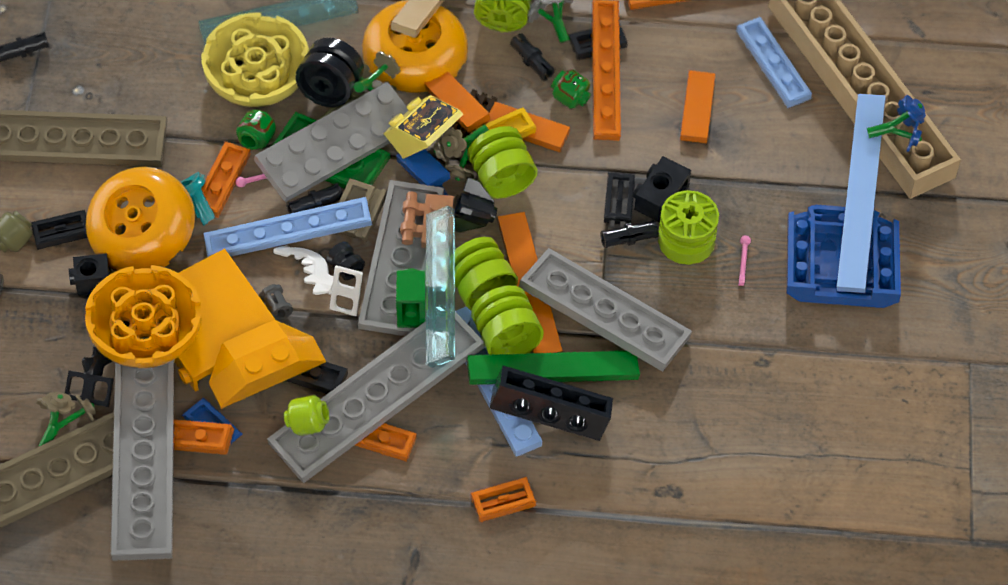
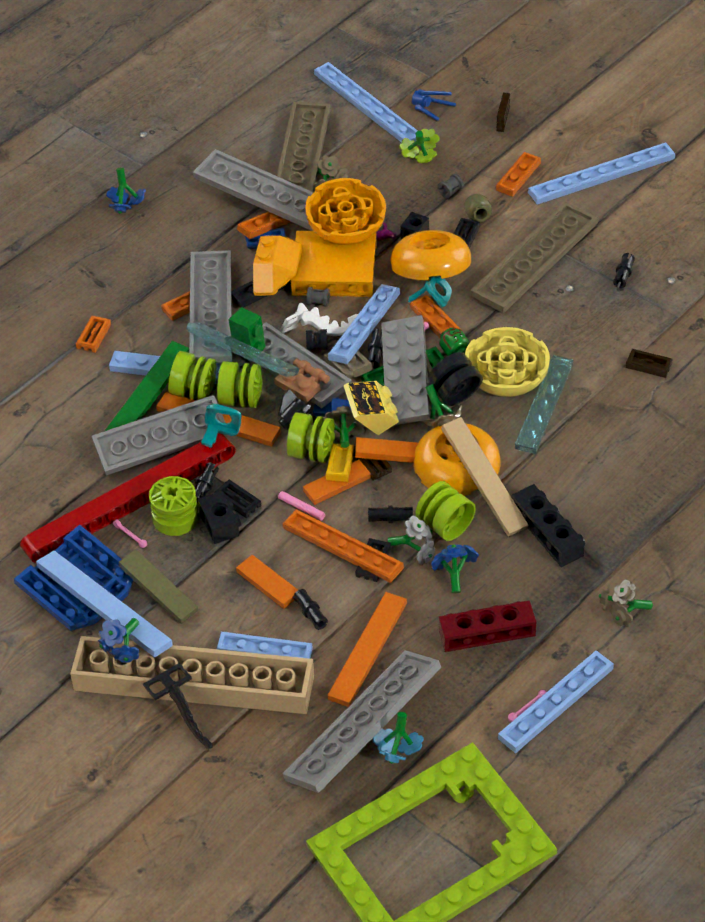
camera: 130 degrees right, 10 degrees down
(306, 415) = (220, 260): lime head -> none
(550, 237) = (215, 426): none -> teal piece
(551, 403) = (119, 366): black brick -> none
(571, 89) = (341, 514): green head -> none
(582, 138) = (301, 505): none -> bright pink piece
(702, 48) = (310, 609): none -> black pin
(708, 287) = (125, 498): none -> red beam
(789, 182) = (158, 586): none -> olive tile
(901, 66) = (176, 694): none -> black piece

